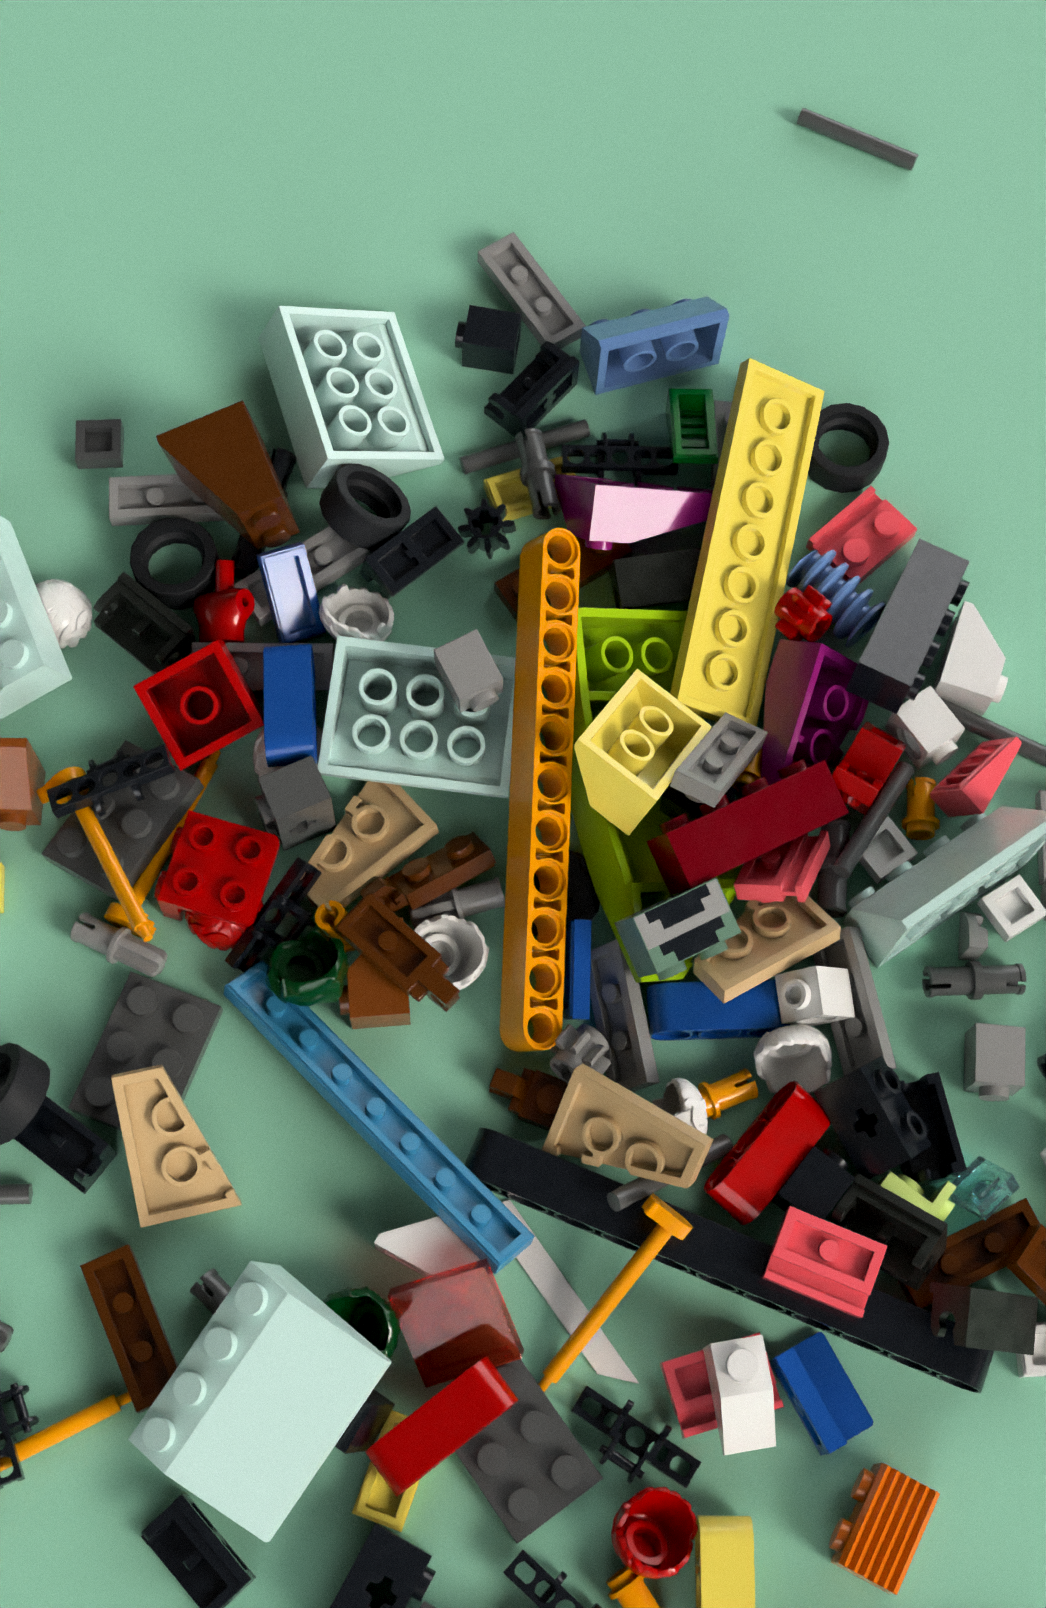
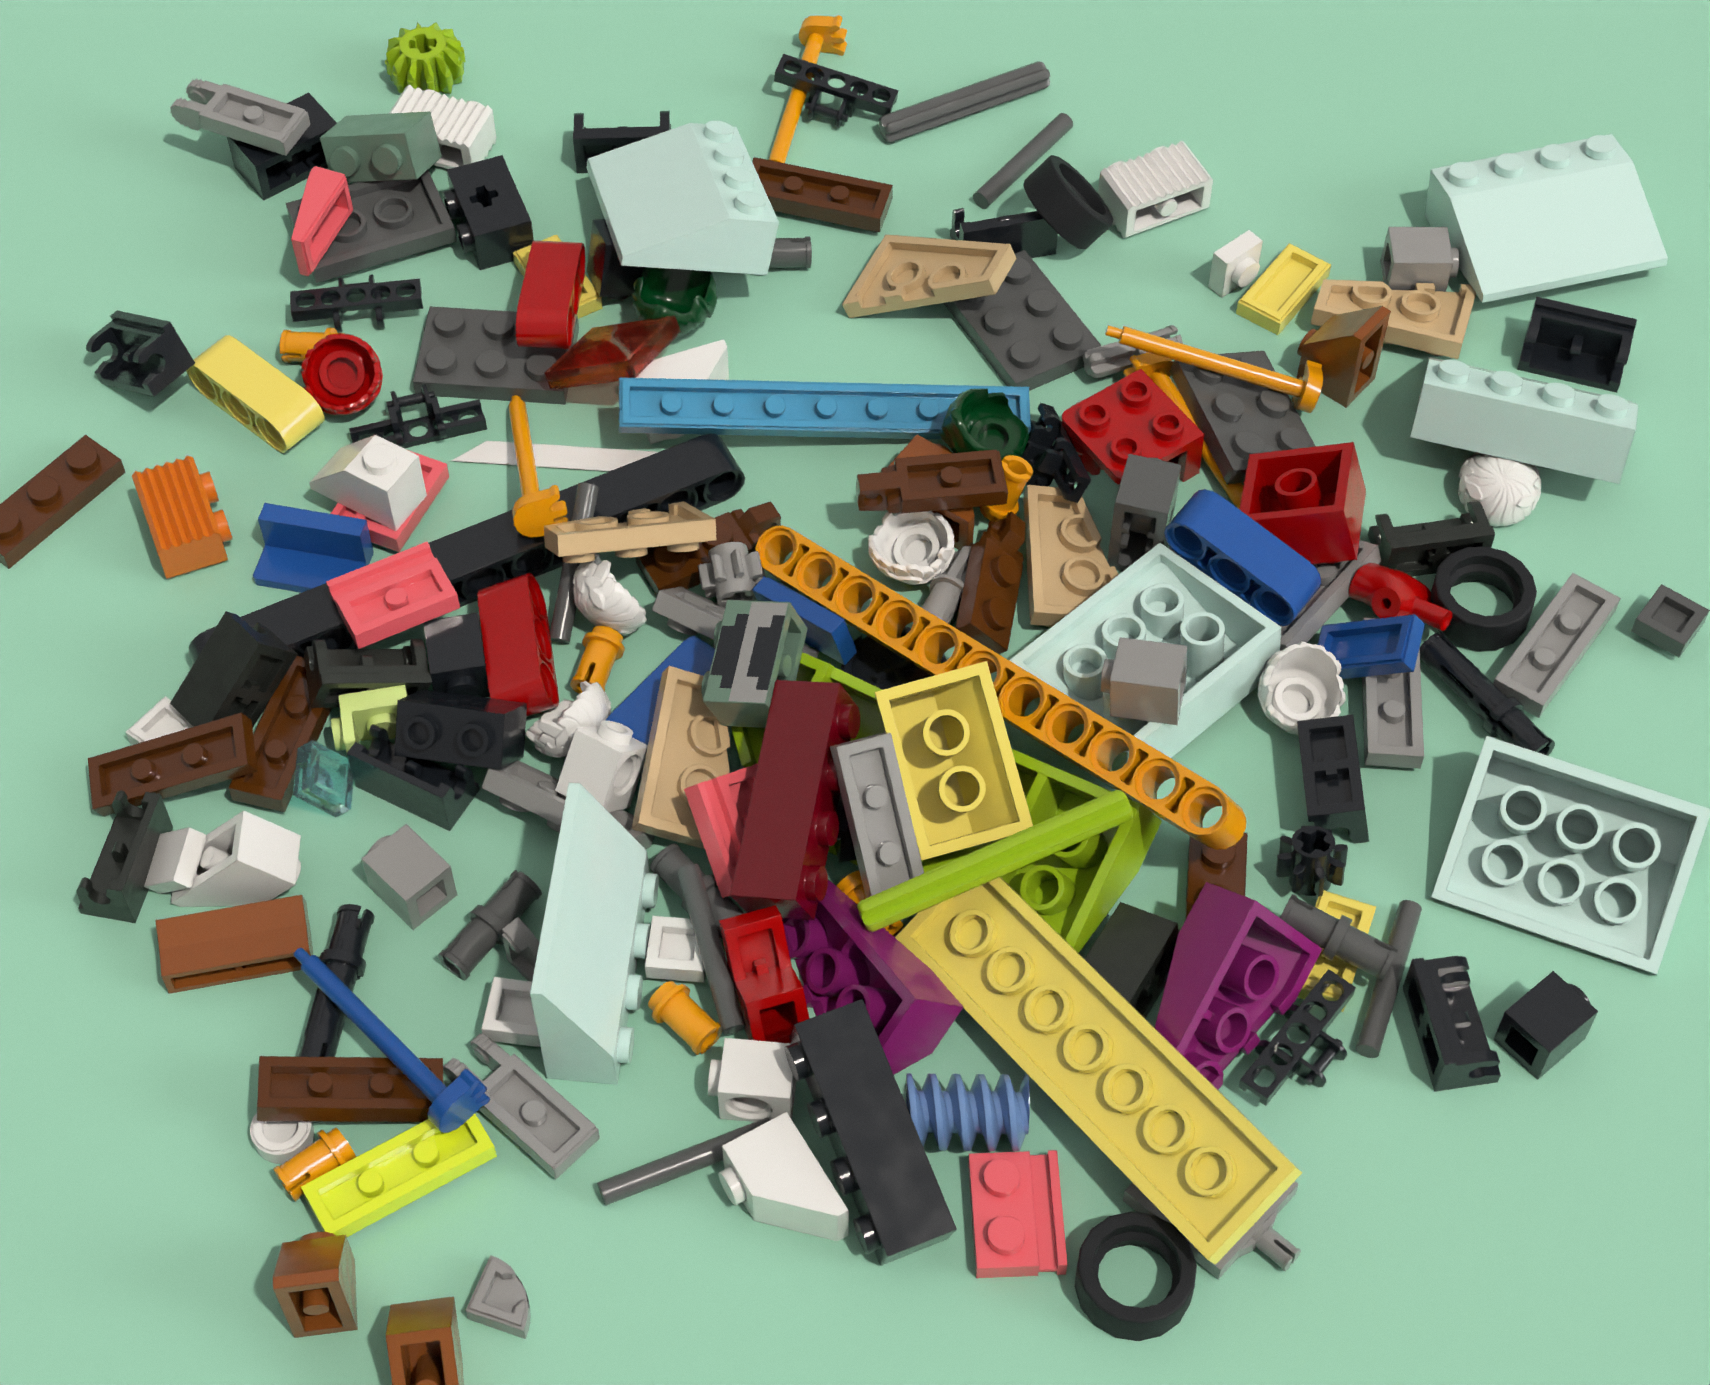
camera: 135 degrees right, 15 degrees down
(122, 765) = (1294, 406): black piece -> none
(232, 473) = (1516, 644): reddish brown slope -> none
(353, 521) = (1442, 796): black tyre -> none
(530, 291) = (1583, 1112): light grey plate -> none
(653, 343) = (1425, 1169): medium blue slope -> none
(683, 671) = (995, 860): none -> lime axle
(692, 404) = (1305, 1122): green slope -> none
(803, 614) = (967, 1038): red gear -> none
(976, 778) = (664, 1074): coral slope -> none

